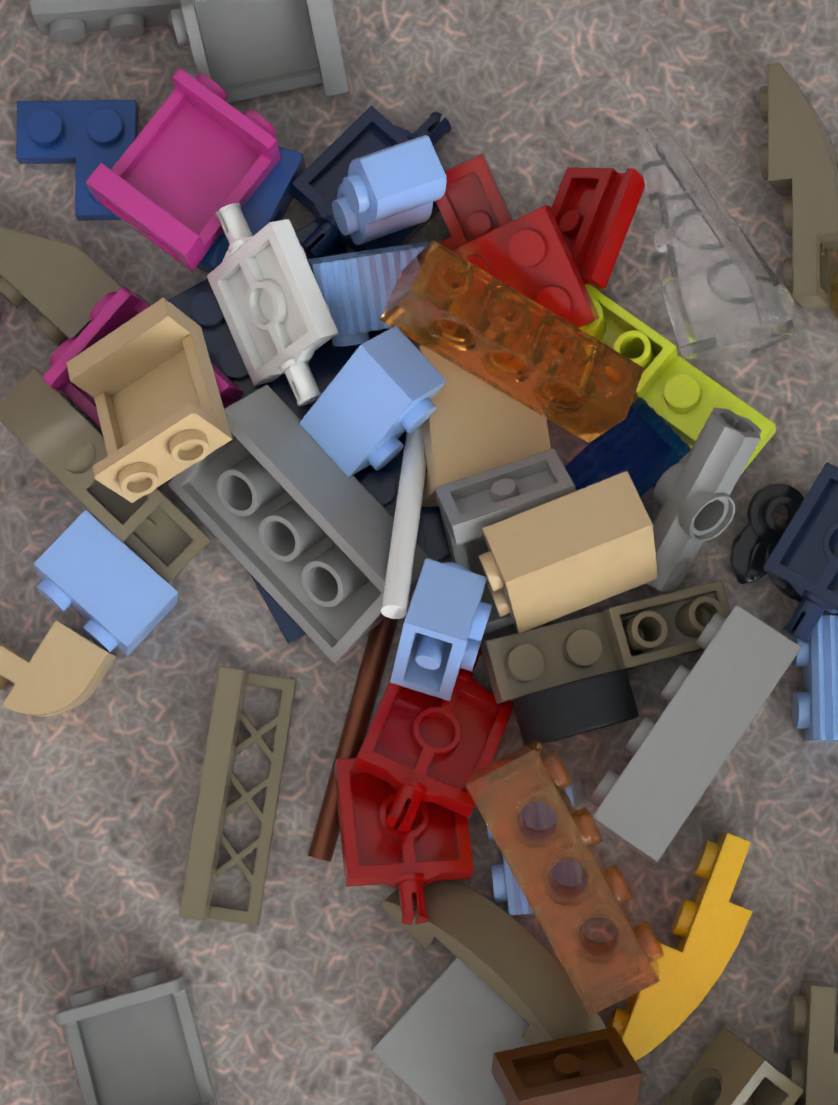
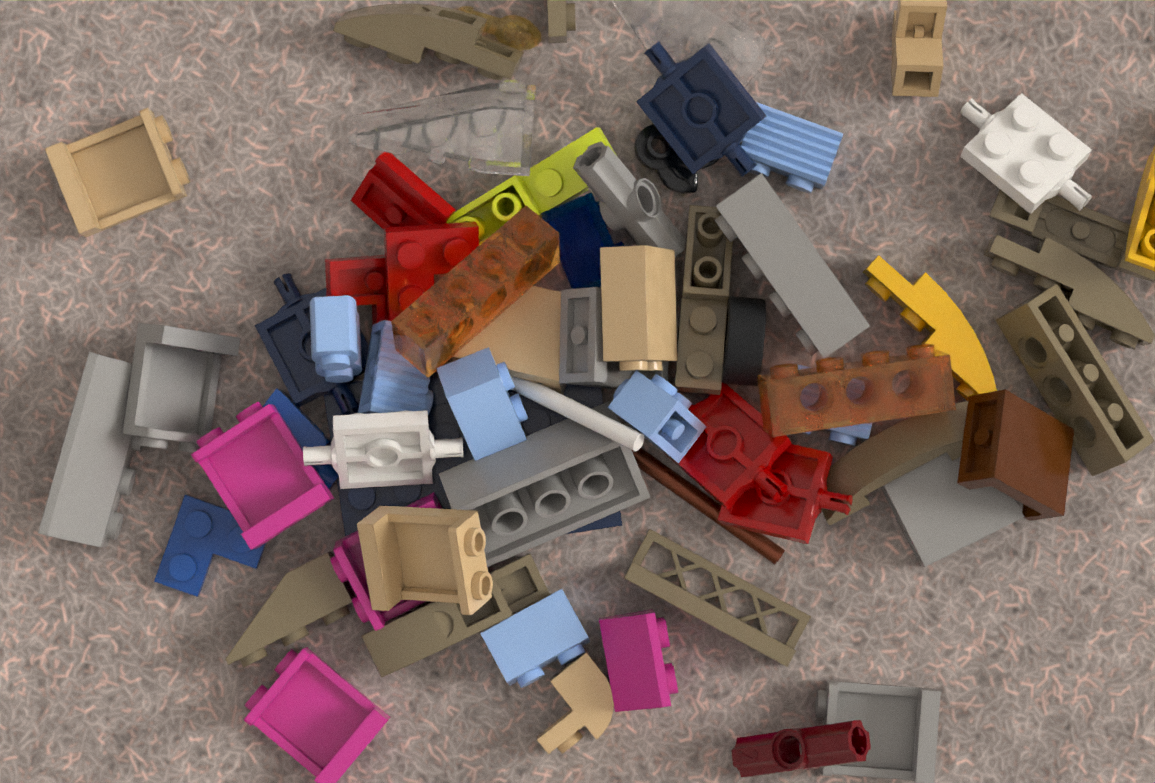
camera: 70 degrees left, 5 degrees up
(77, 975) = (820, 746): none -> dark red piece
(119, 721) = (636, 660): none -> dark pink slope

